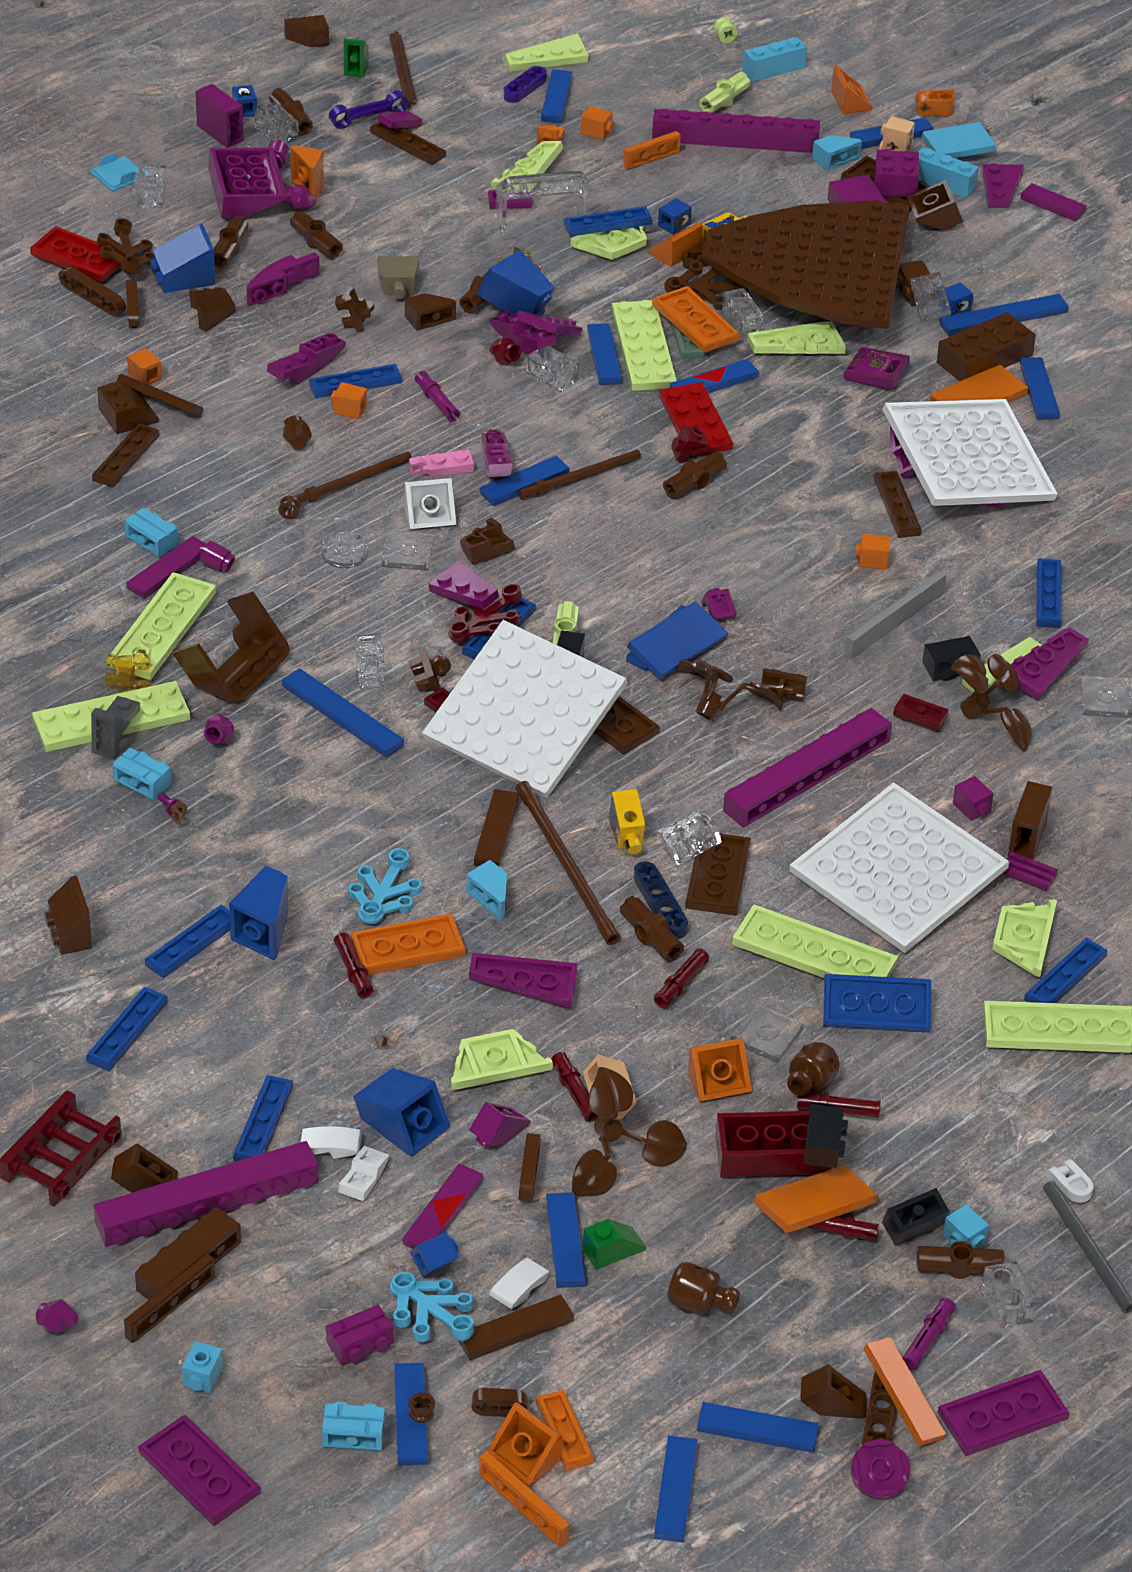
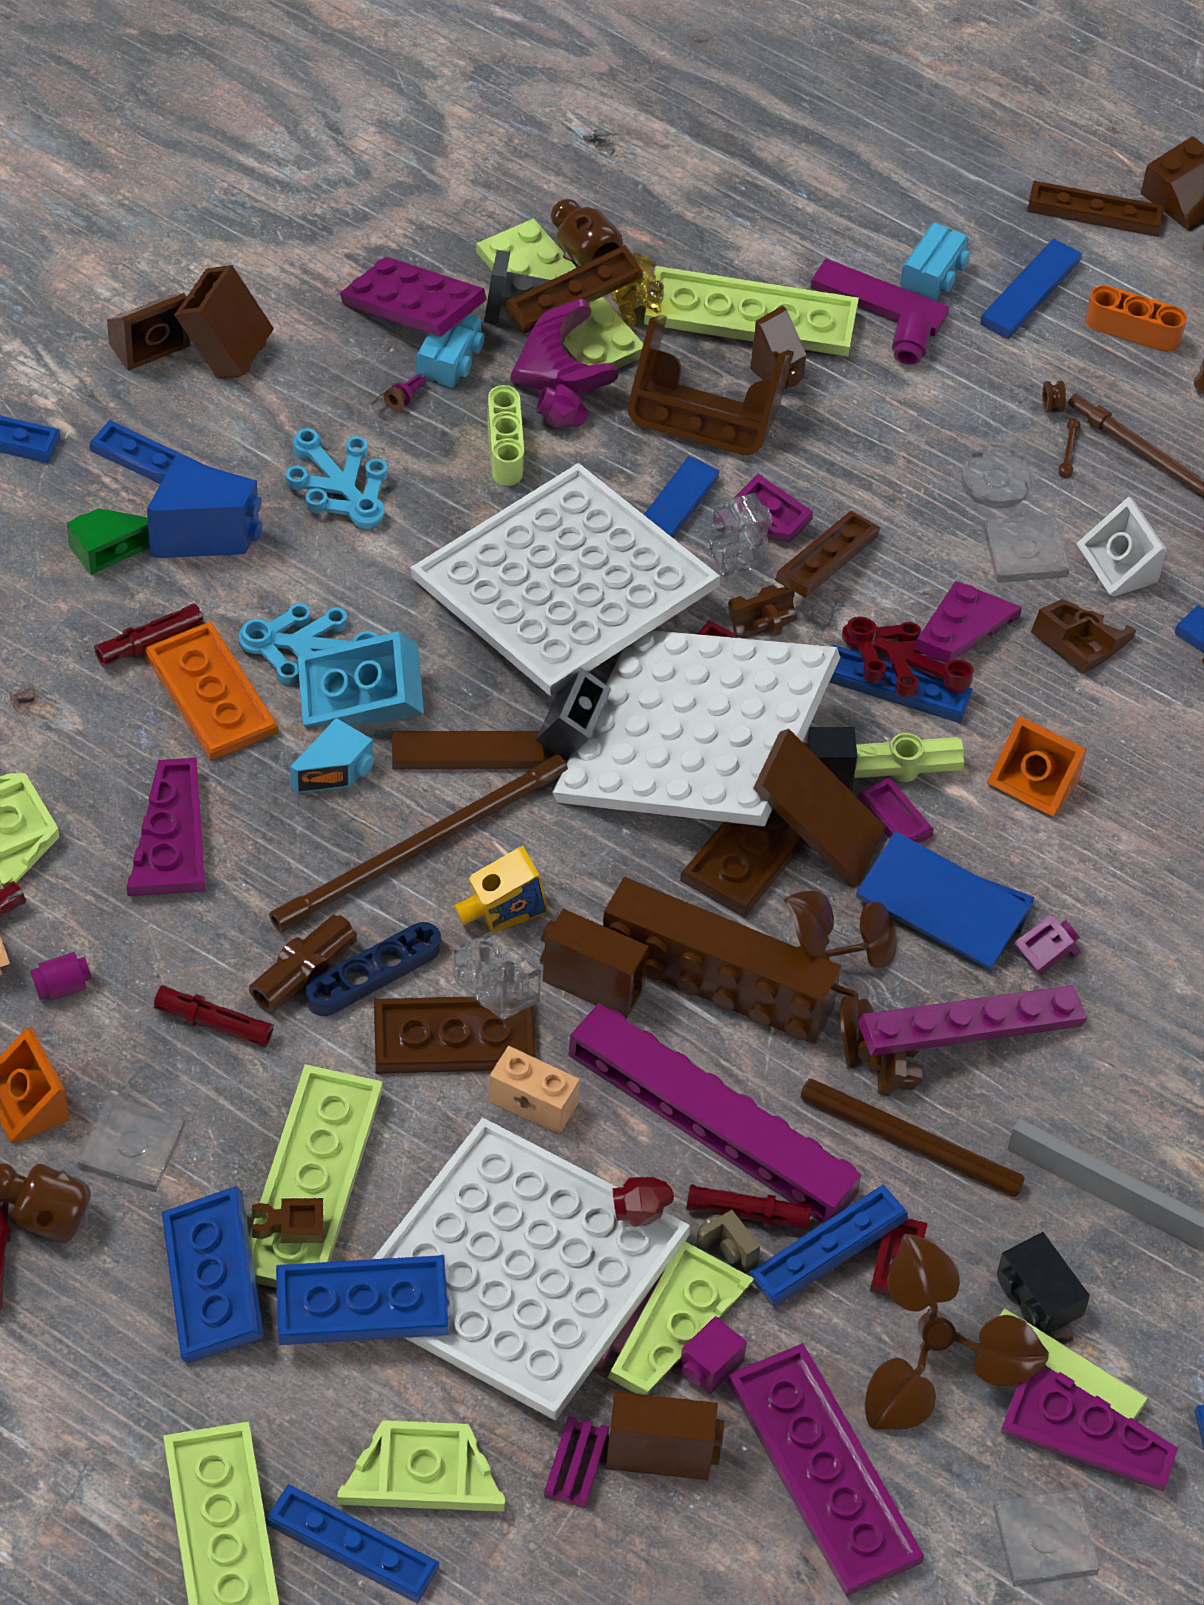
camera: 75 degrees right, 10 degrees up
(66, 685) = (583, 232): none -> reddish brown piece
(91, 870) = (224, 322): none -> reddish brown brick
(94, 778) = (413, 296): none -> magenta plate
(131, 691) = (584, 282): none -> reddish brown tile
(176, 723) = (545, 360): none -> magenta animal
(187, 498) = (1030, 288): none -> blue tile
(213, 616) = (772, 336): none -> reddish brown slope
(234, 760) = (505, 435): none -> yellowish green beam
(236, 456) = (1135, 318): none -> orange beam
(260, 974) = (107, 537): none -> green slope
(272, 844) = (365, 509): none -> medium azure plant
(339, 655) = (787, 514): none -> magenta wing
(347, 520) = (1066, 469): none -> reddish brown hinge
(375, 751) = (565, 578): none -> white plate
(393, 629) = (827, 554): none -> reddish brown tile
(435, 860) = (361, 682): none -> medium azure slope
(493, 766) = (573, 714): none -> black brick
(588, 578) = (1038, 766): none -> orange slope
(605, 649) = (895, 811): none -> magenta tile
(609, 664) = (819, 807): none -> reddish brown tile
(633, 1046) = (61, 976): none -> magenta brick
(695, 786) = (593, 962): none -> reddish brown brick
(705, 736) = (726, 961): none -> reddish brown brick
(771, 643) = (971, 1020): none -> magenta plate
(775, 838) = (533, 1089): none -> light nougat brick
(836, 693) = (912, 1137): none -> reddish brown axle
(854, 953) = (297, 1220): none -> reddish brown plate
(878, 759) = (748, 1207): none -> dark red pin
(880, 793) = (641, 1200): none -> dark red rock
(899, 772) = (734, 1240): none -> dark tan bracket
(910, 737) = (828, 1245): none -> blue tile
(914, 934) = (361, 1300): none -> blue tile
(951, 809) = (684, 1300): none -> yellowish green wing
(1055, 767) = (825, 1469): none -> magenta plate

